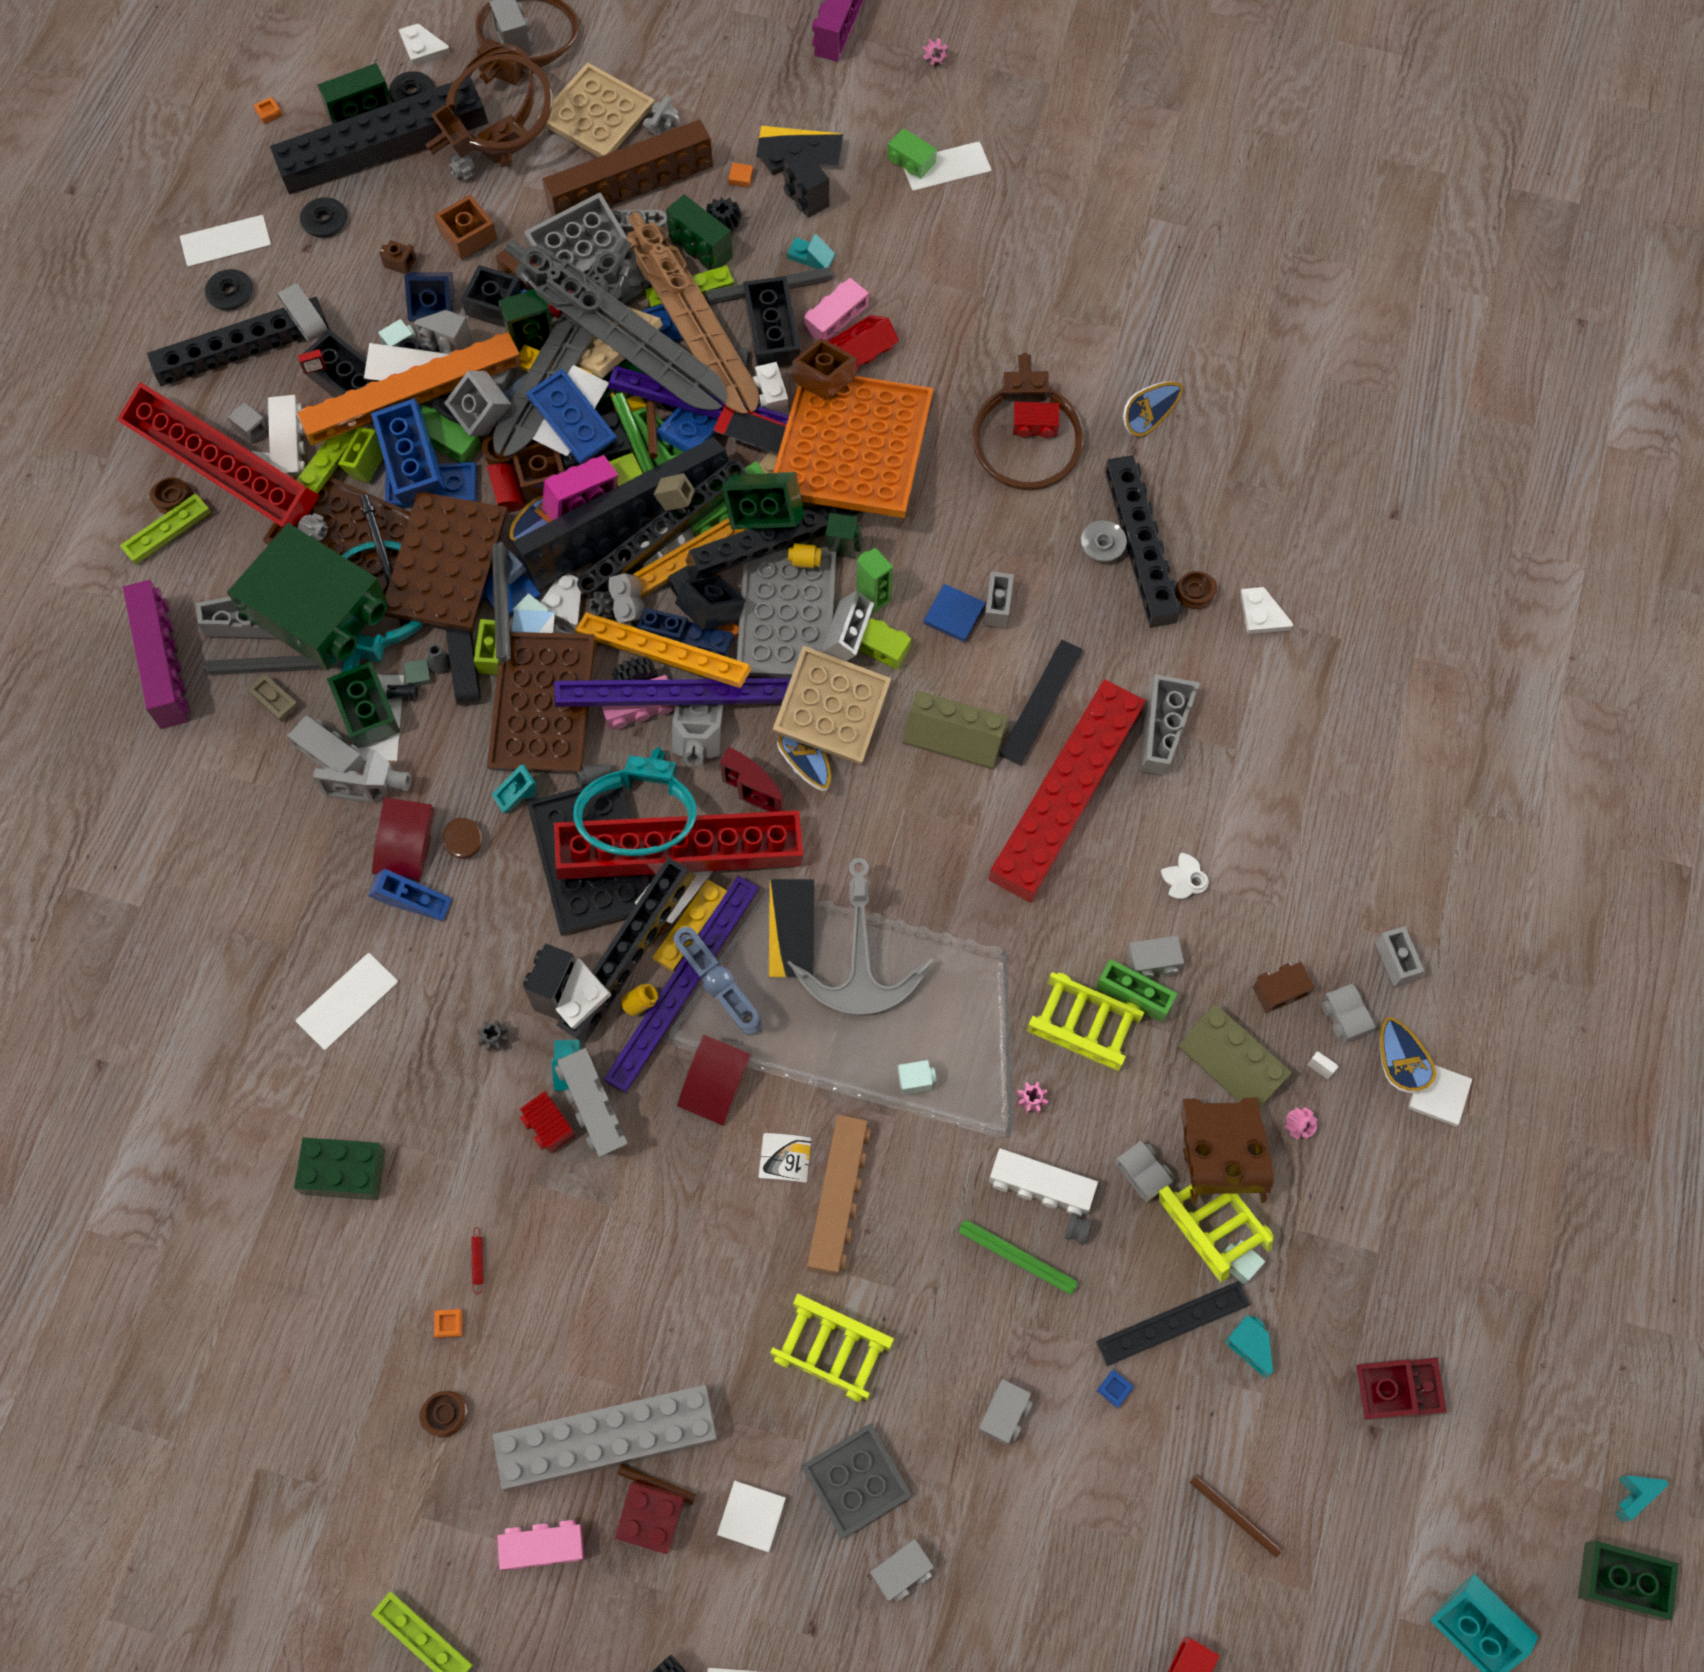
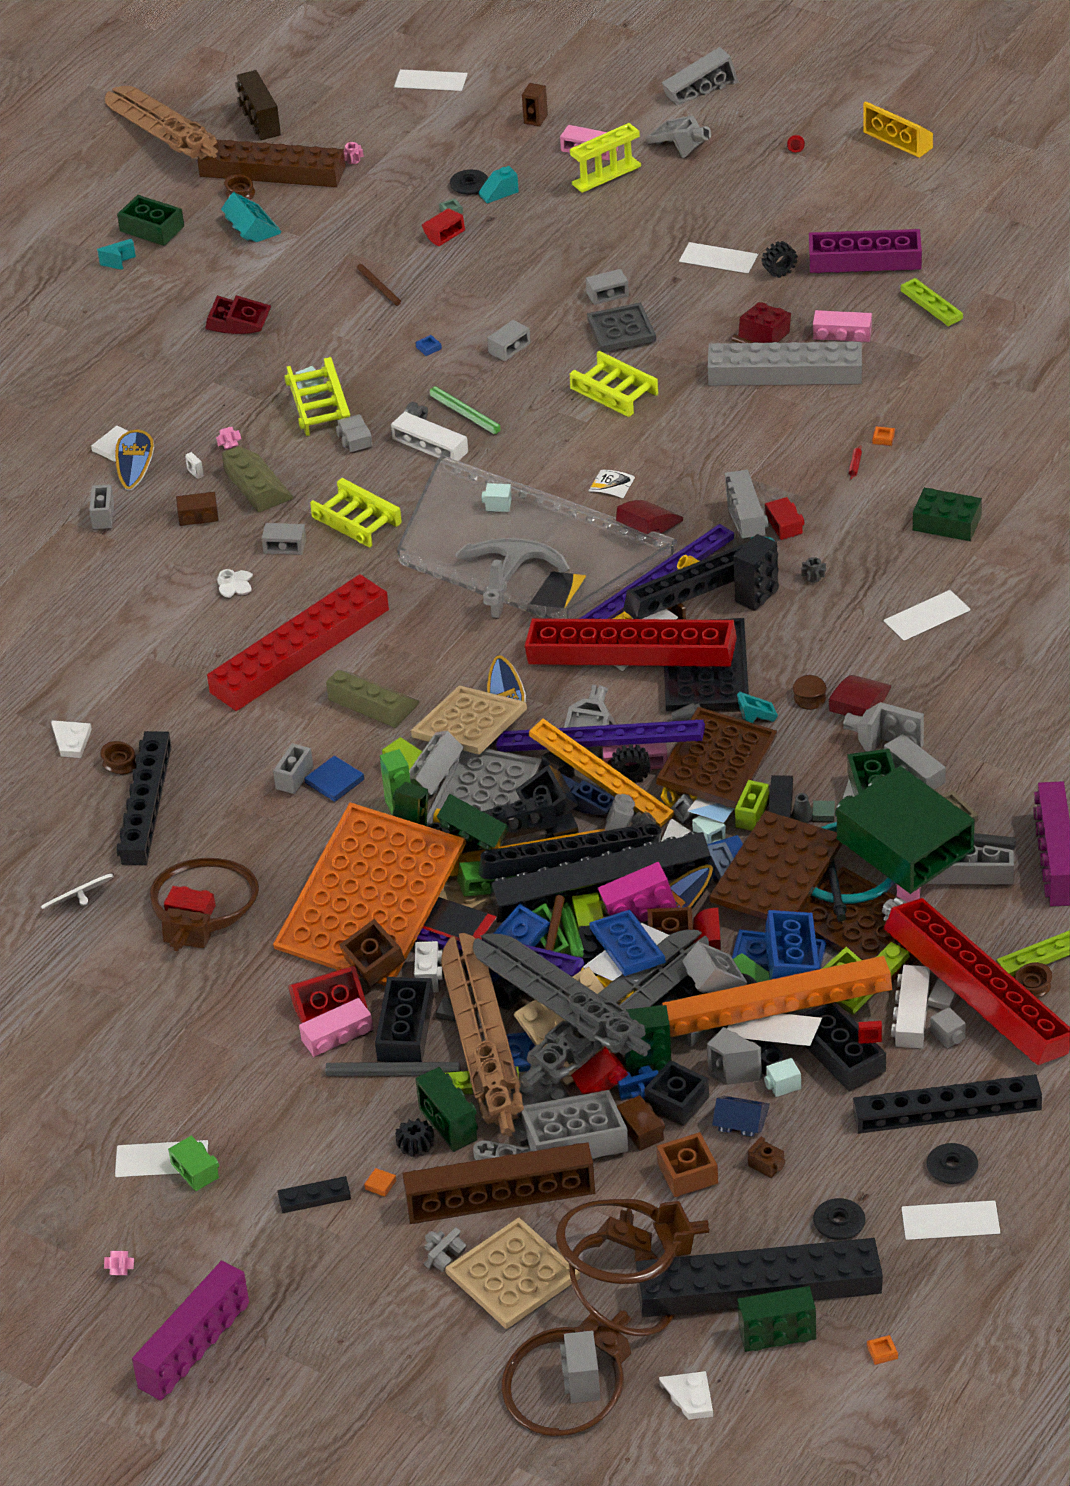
camera: 160 degrees left, 25 degrees down
(302, 312) = (874, 1092): light grey beam -> none
(402, 691) = (836, 794): black pin -> none
(406, 80) = (713, 1353): black wheel -> none
(408, 895) = (866, 660): blue slope -> none
(443, 1414) = (895, 392): reddish brown piece -> none
(501, 608) = (733, 817): dark grey axle -> none
(581, 995) = (725, 554): white wing -> none
(649, 769) = (640, 696): teal brick -> none
(674, 492) = (551, 848): dark tan brick -> none
(717, 980) = (620, 548): sand blue piece -> none
(751, 780) = (556, 676): dark red slope -> none
(751, 1516) = (697, 324): white tile -> none
(779, 139) = (326, 1203): black sticker -> none
(806, 183) = (318, 1137): black brick -> none
(813, 253) = (339, 1091): teal slope -> none
(837, 1196) = (579, 452): medium nougat brick -> none
(1038, 1099) = (415, 479): bright pink gear -> none
(1040, 702) = (286, 710): black tile -> none
(1106, 533) = (179, 801): light grey dish -> none
(1135, 988) = (318, 521): bright green brick -> none
(1164, 718) = (188, 677): light grey wedge -> none
(1172, 1323) = (381, 366): black tile -> none
(1226, 1148) = (291, 423): reddish brown piece -> none
(1252, 1344) = (326, 346): teal slope -> none
(1347, 1013) = (159, 488): light grey brick -> none

